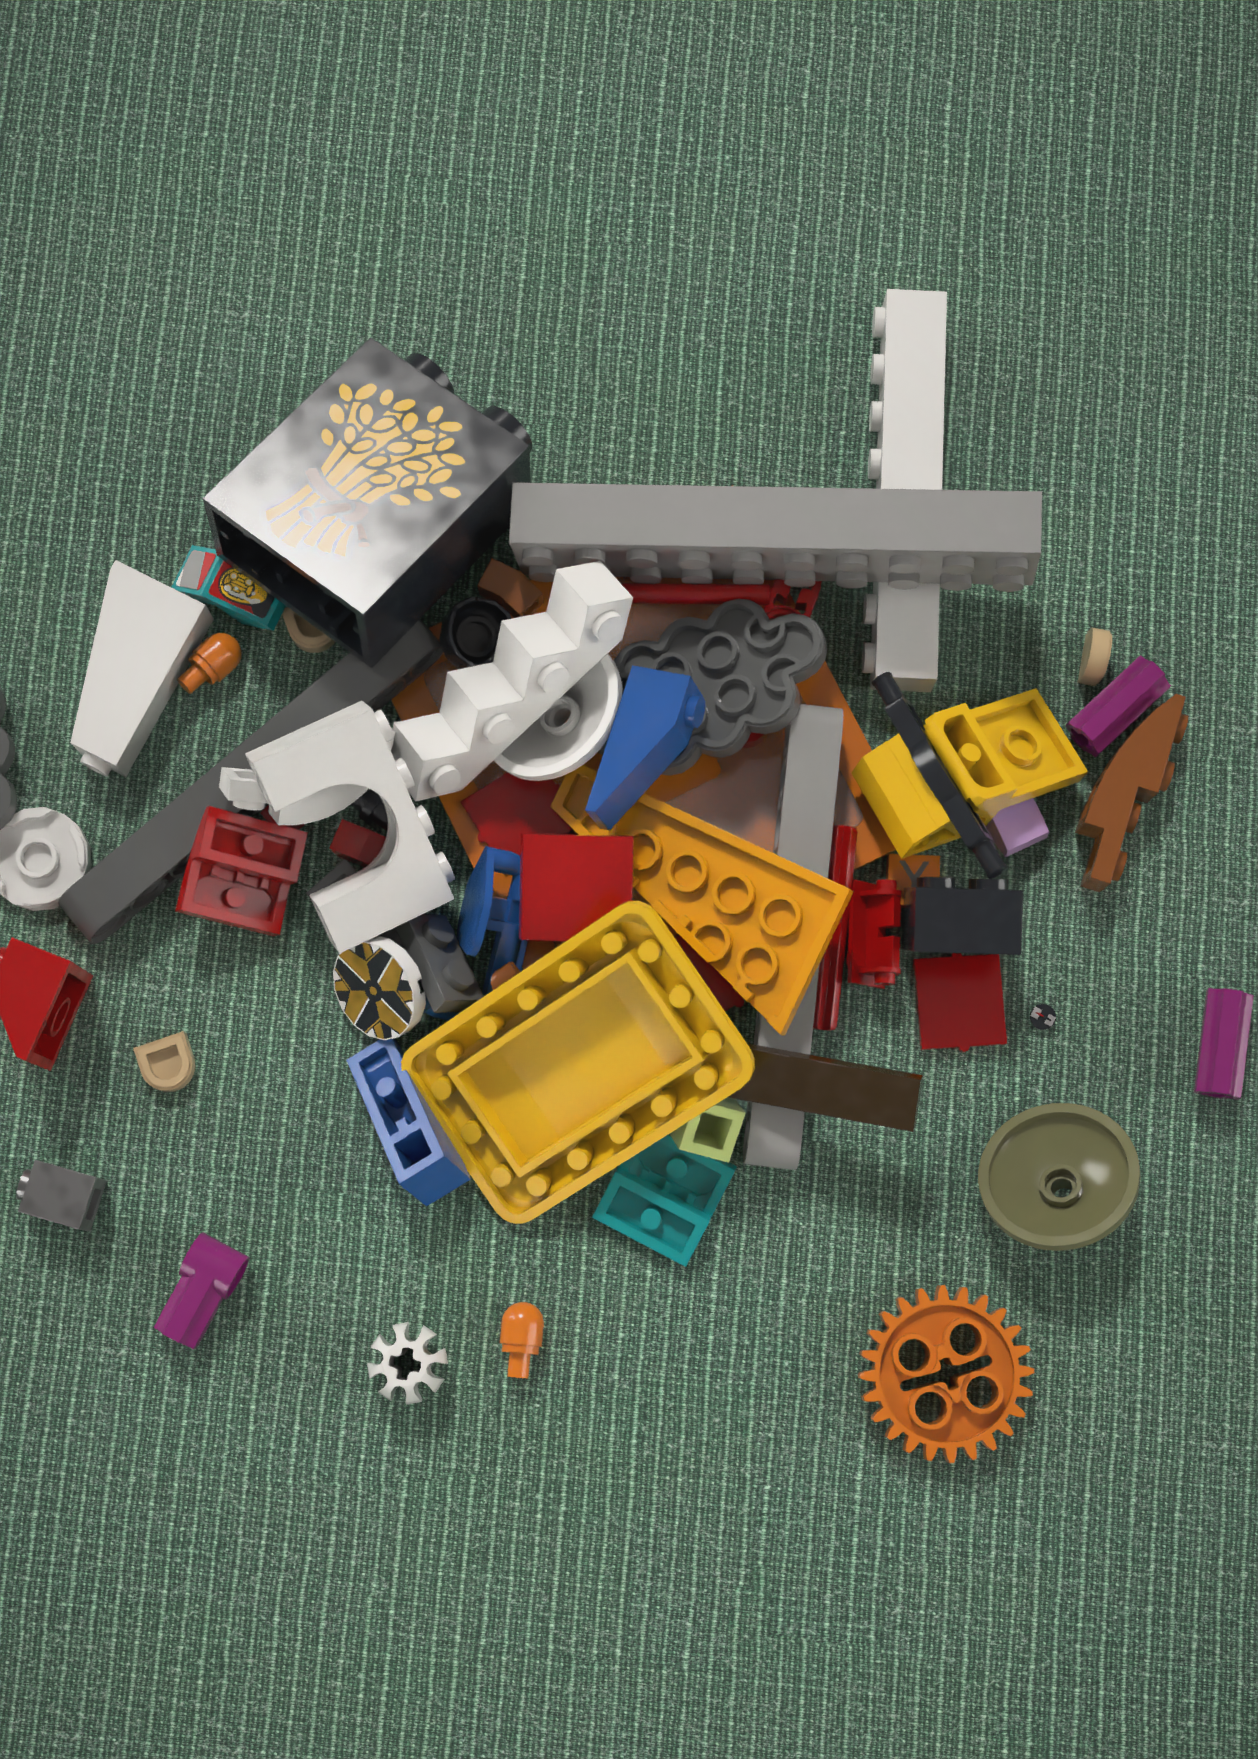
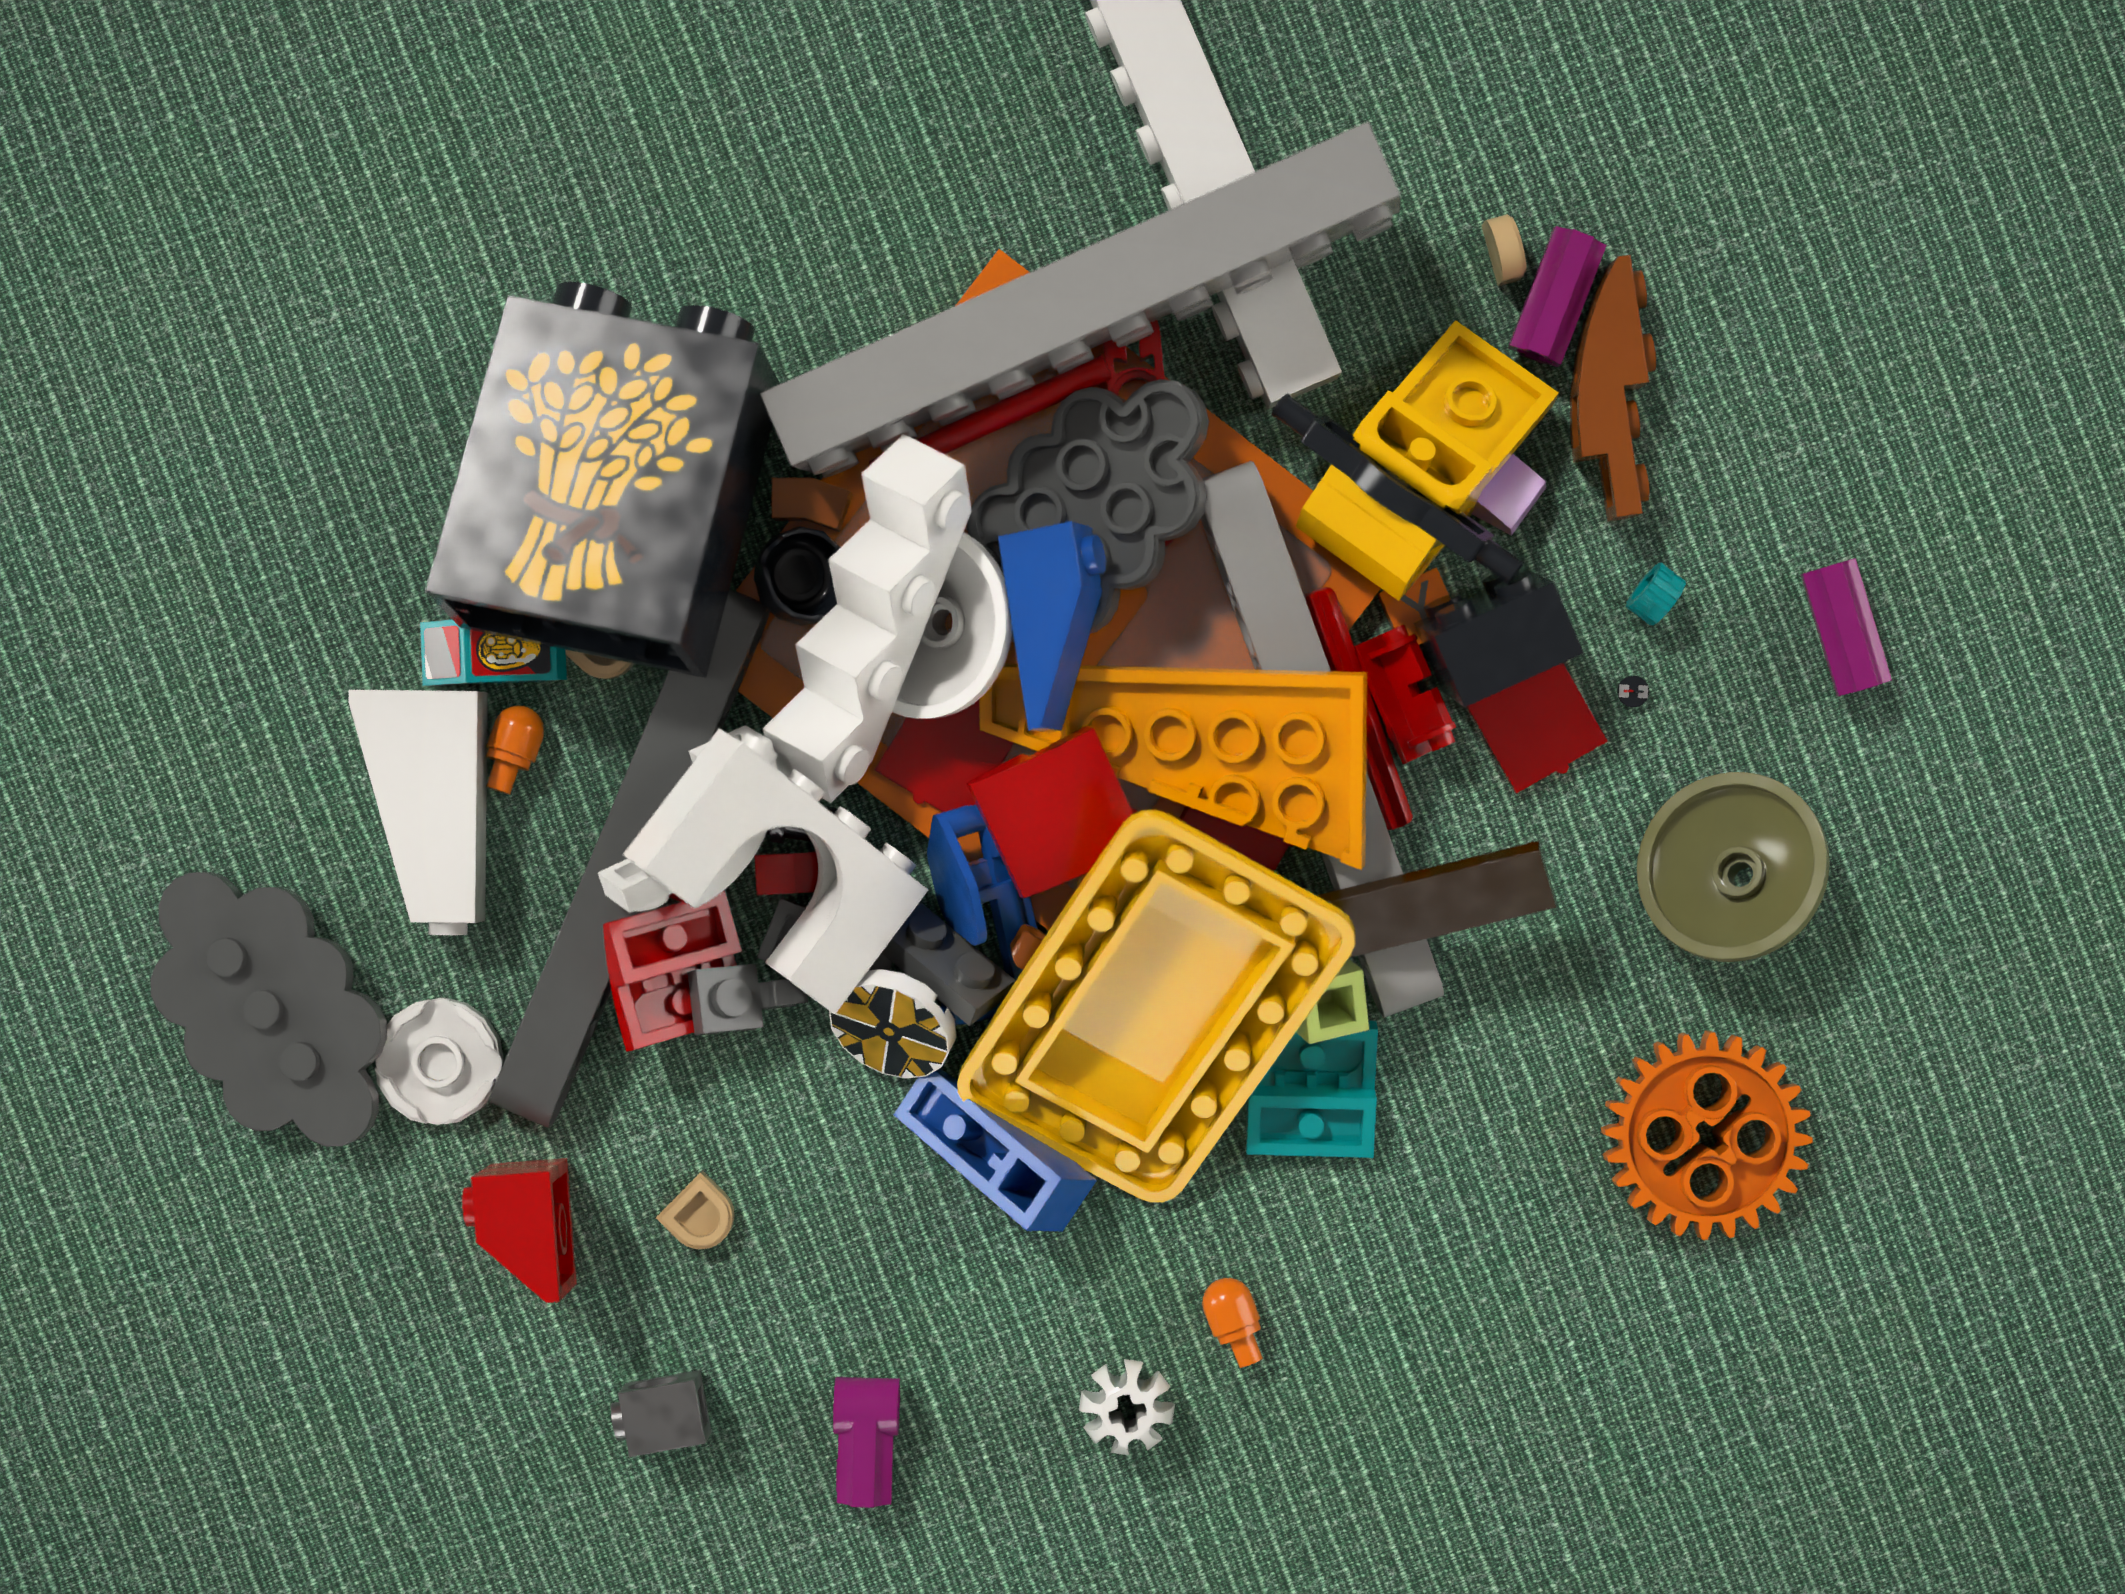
camera: 20 degrees left, 10 degrees up
(272, 914) = (734, 1000): none -> dark grey plate
(1092, 952) = (1656, 594): none -> teal axle

